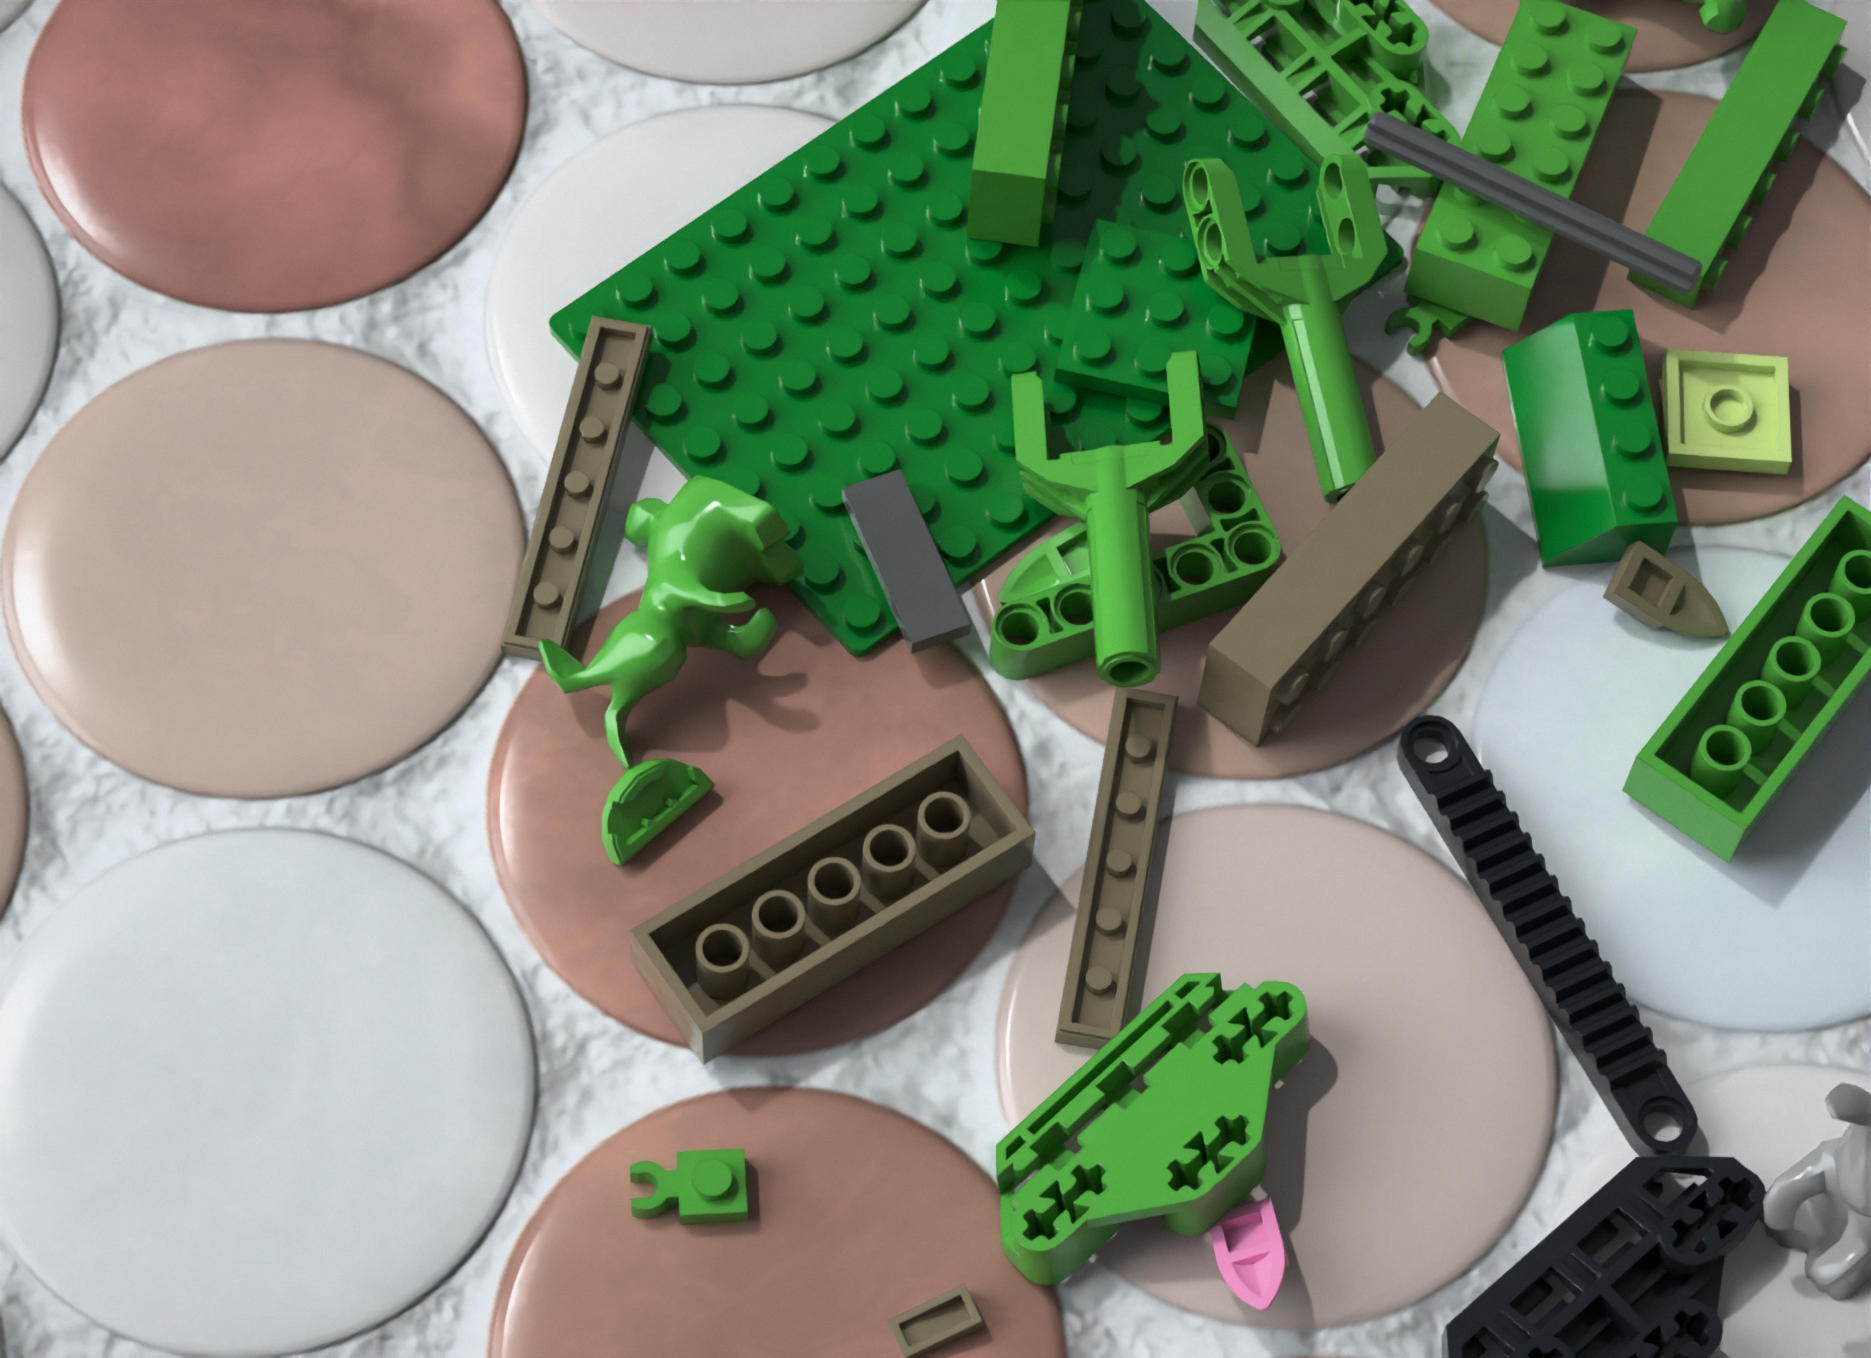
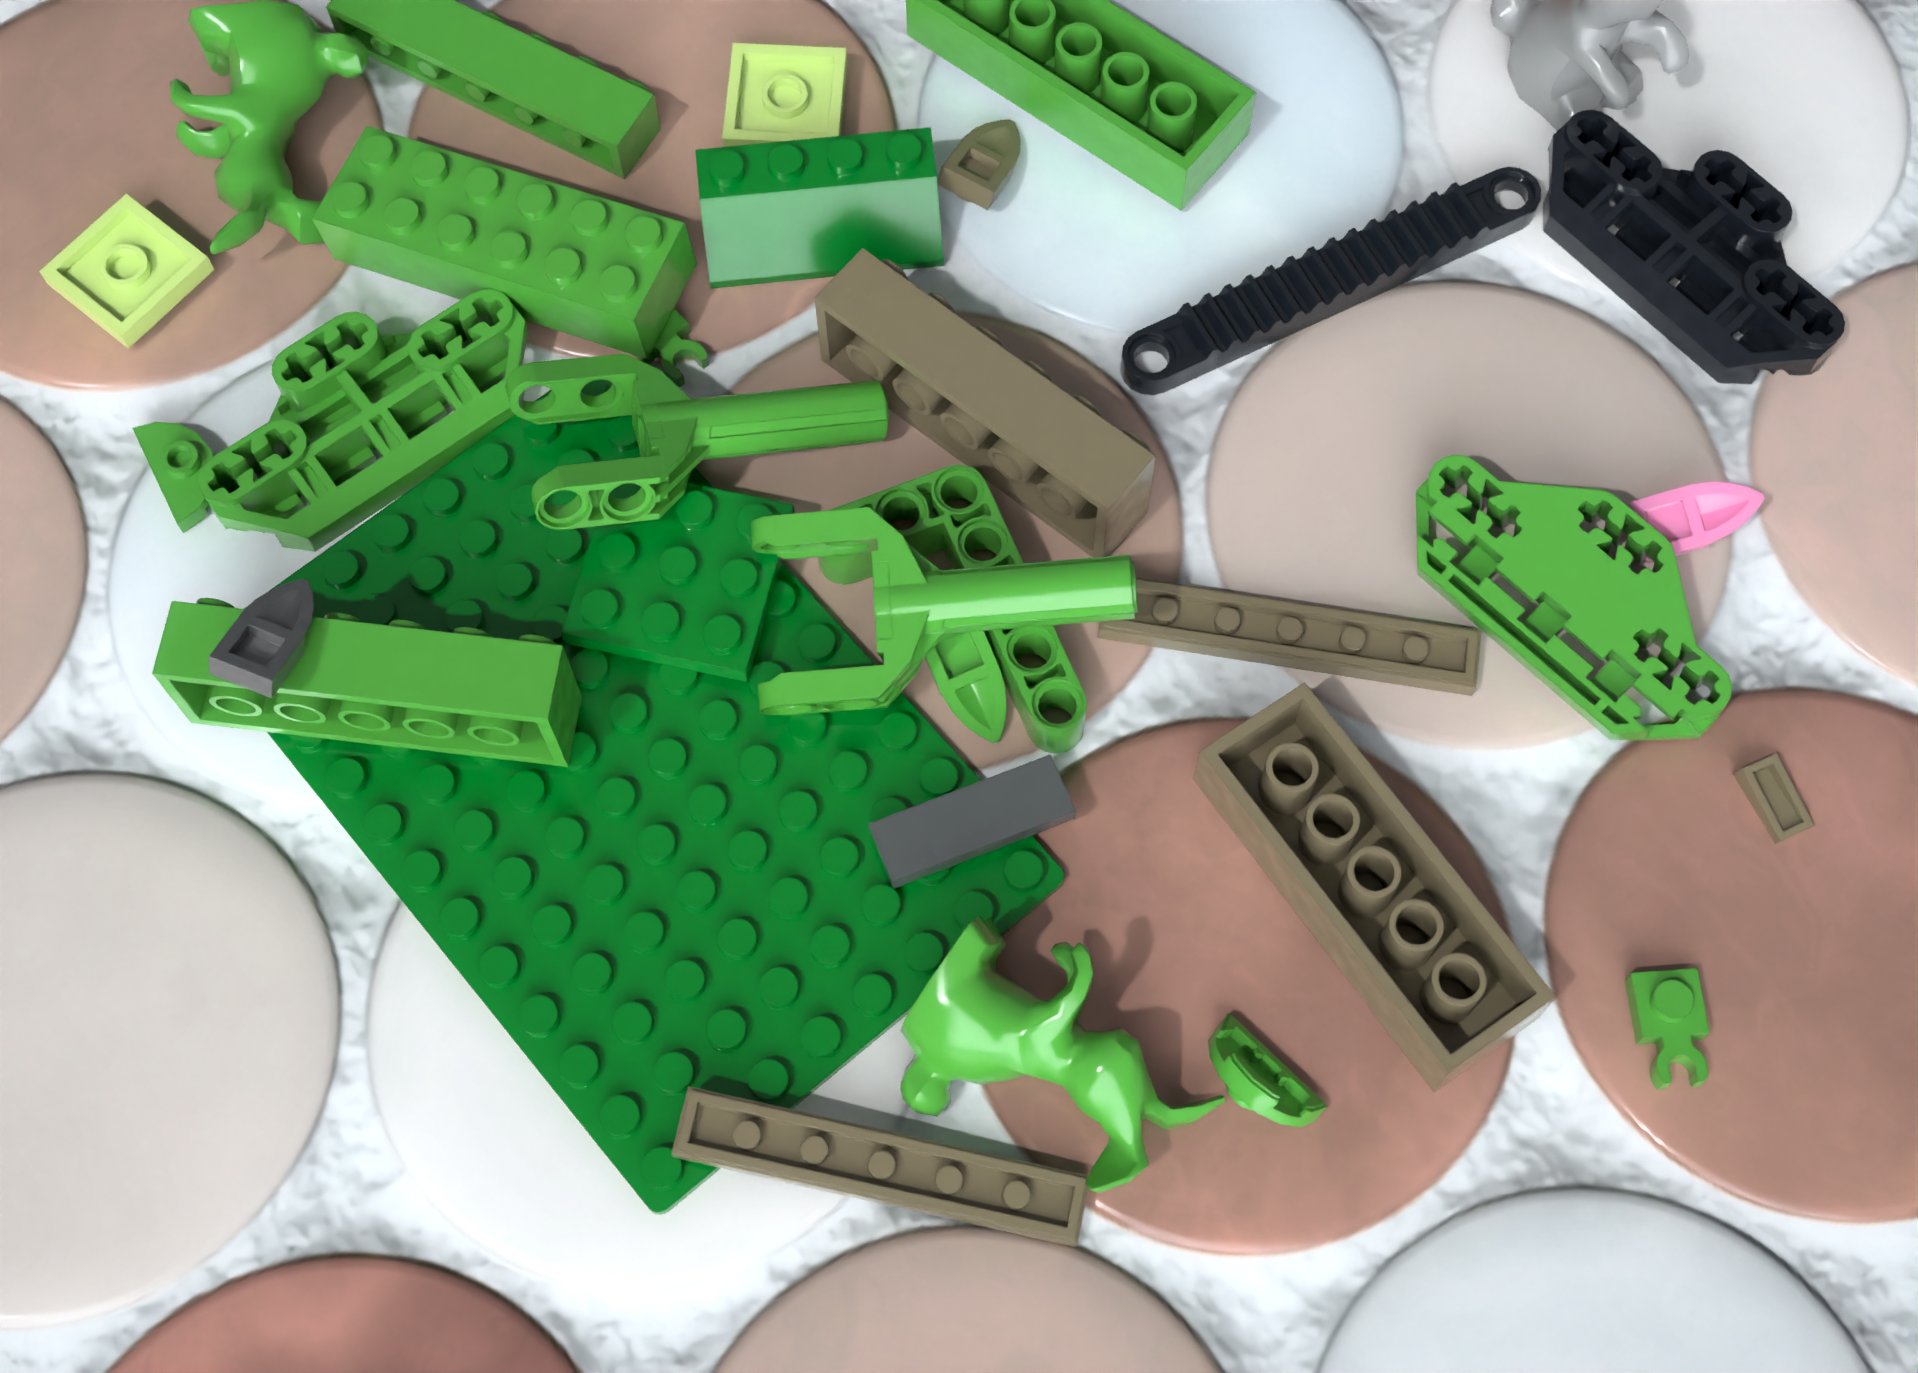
camera: 85 degrees left, 5 degrees up
(1533, 202) = (592, 211): dark grey axle -> none

